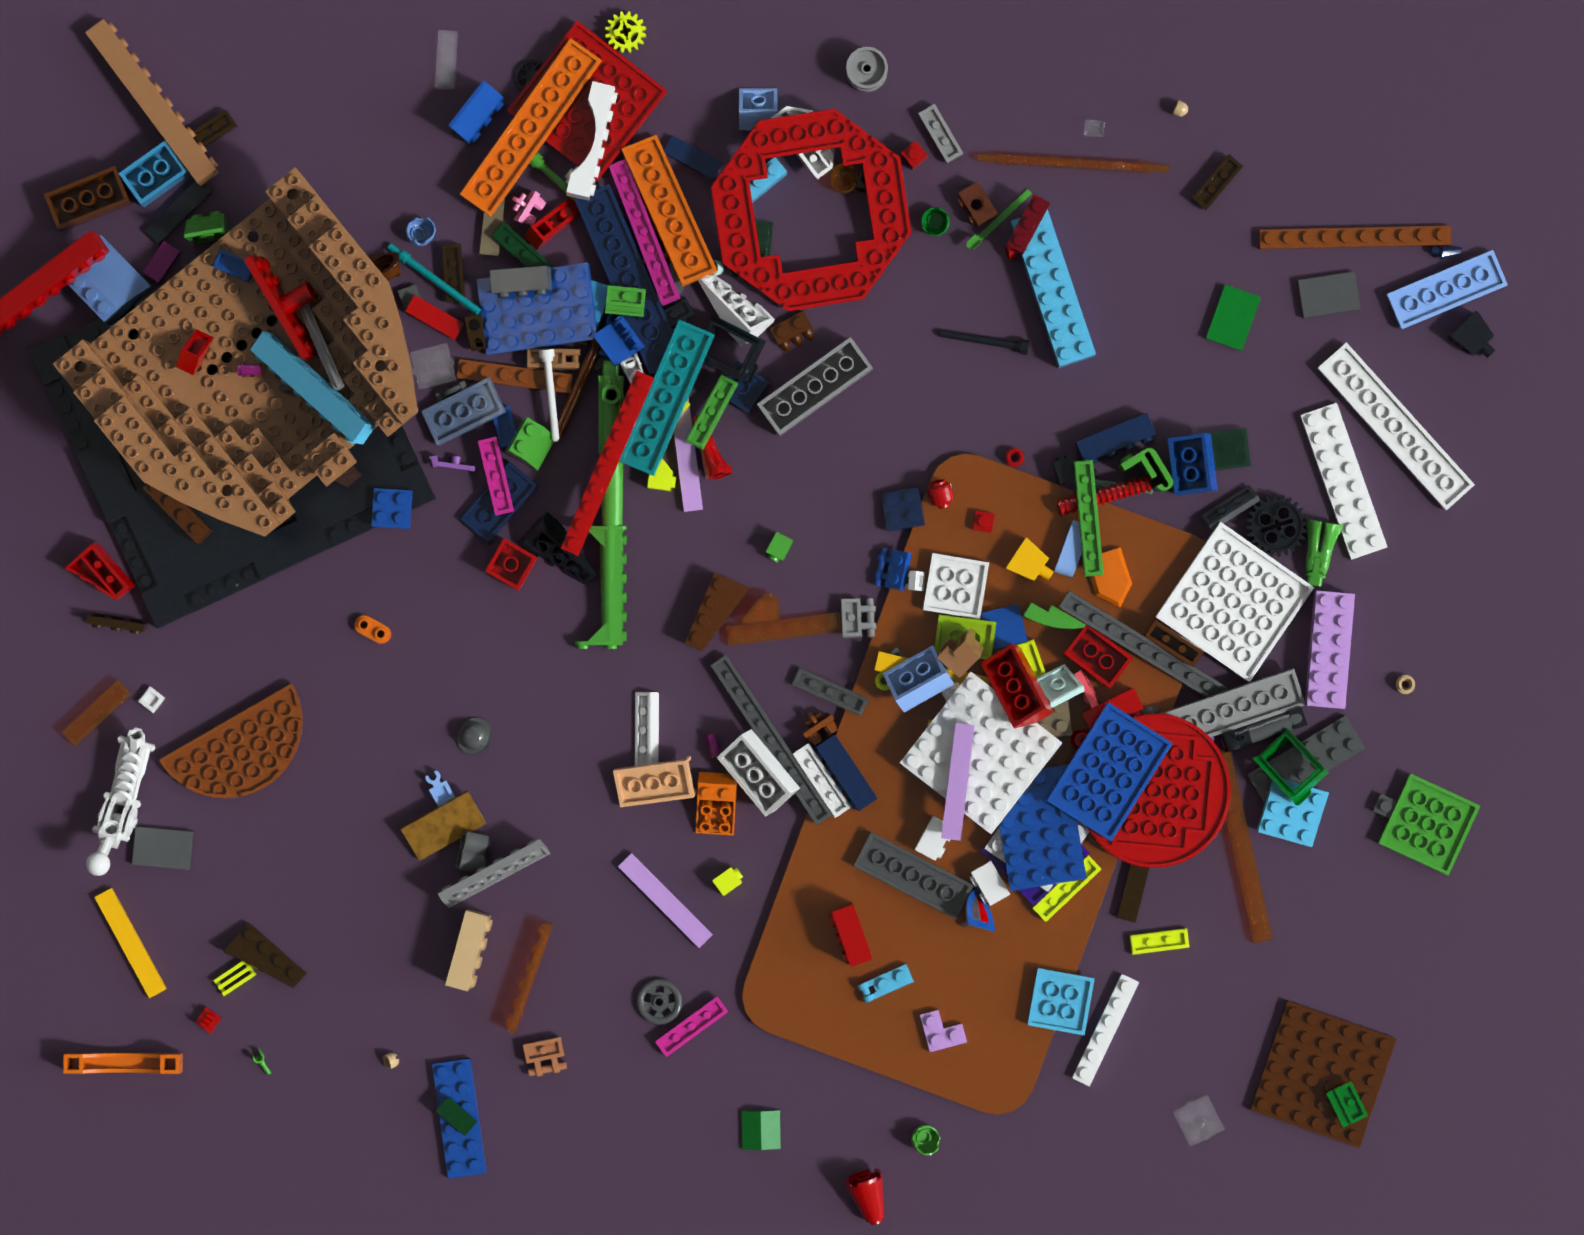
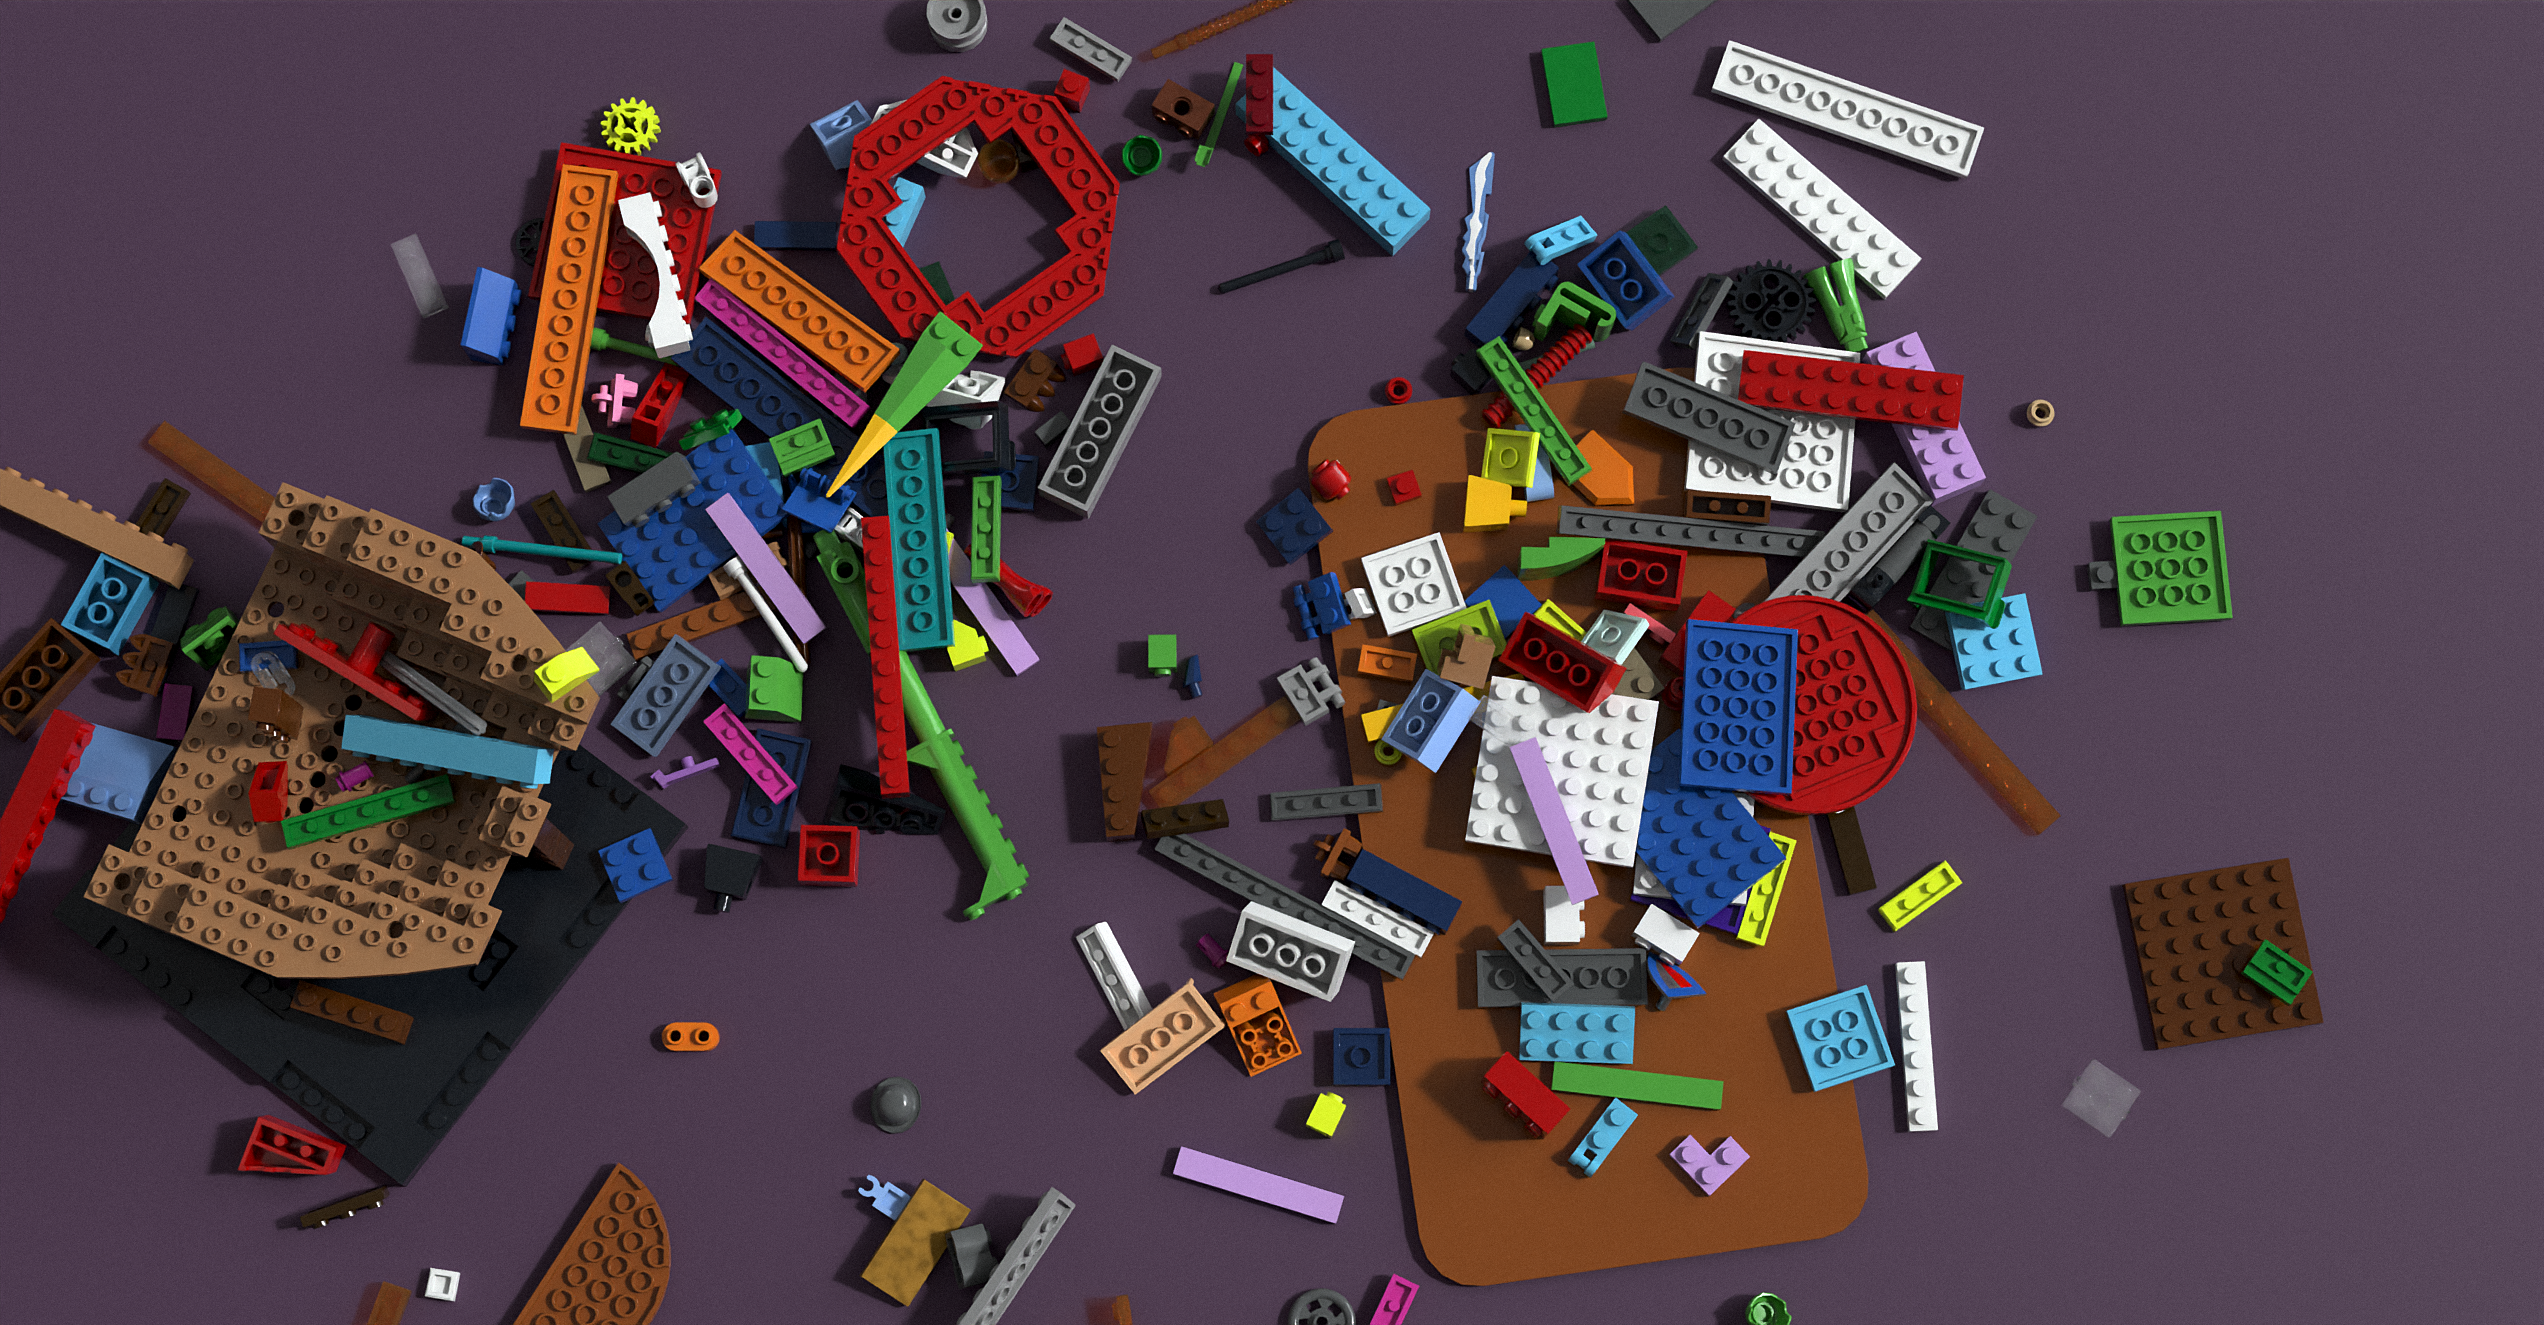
camera: 35 degrees left, 10 degrees down
(159, 225) = (147, 665): none -> reddish brown plate
(220, 309) = (275, 714): none -> reddish brown brick
(235, 280) = (277, 669): none -> clear beam
(247, 396) = (368, 811): none -> green plate
(260, 125) = (212, 471): none -> clear orange plate
(404, 389) = (564, 673): none -> neon yellow slope
(446, 543) = (730, 874): none -> black torso
(564, 366) = (766, 568): none -> lavender tile
(575, 258) = (710, 429): none -> green plate
(649, 88) = (696, 177): none -> white piece
(731, 292) = (933, 363): none -> bright green plate
(738, 656) = (1185, 818): none -> dark brown plate
(768, 857) = (1361, 1056): none -> dark blue plate
(787, 368) = (1053, 429): none -> dark grey piece
(791, 570) = (1193, 677): none -> dark blue bar
(830, 331) = (1082, 355): none -> red brick
(902, 858) = (1535, 961): none -> dark grey plate
(904, 913) = (1577, 1033): none -> medium azure plate
(913, 626) = (1387, 663): none -> orange plate
(923, 963) = (1637, 1085): none -> bright green tile
(1058, 539) = (1510, 457): none -> neon yellow tile
(1109, 465) = (1523, 339): none -> tan hinge
(1123, 374) = (1481, 185): none -> medium blue sword
(1167, 416) = (1560, 239): none -> medium azure plate
(1194, 580) = (1708, 418): none -> dark grey plate
(1291, 610) = (1851, 390): none -> red plate

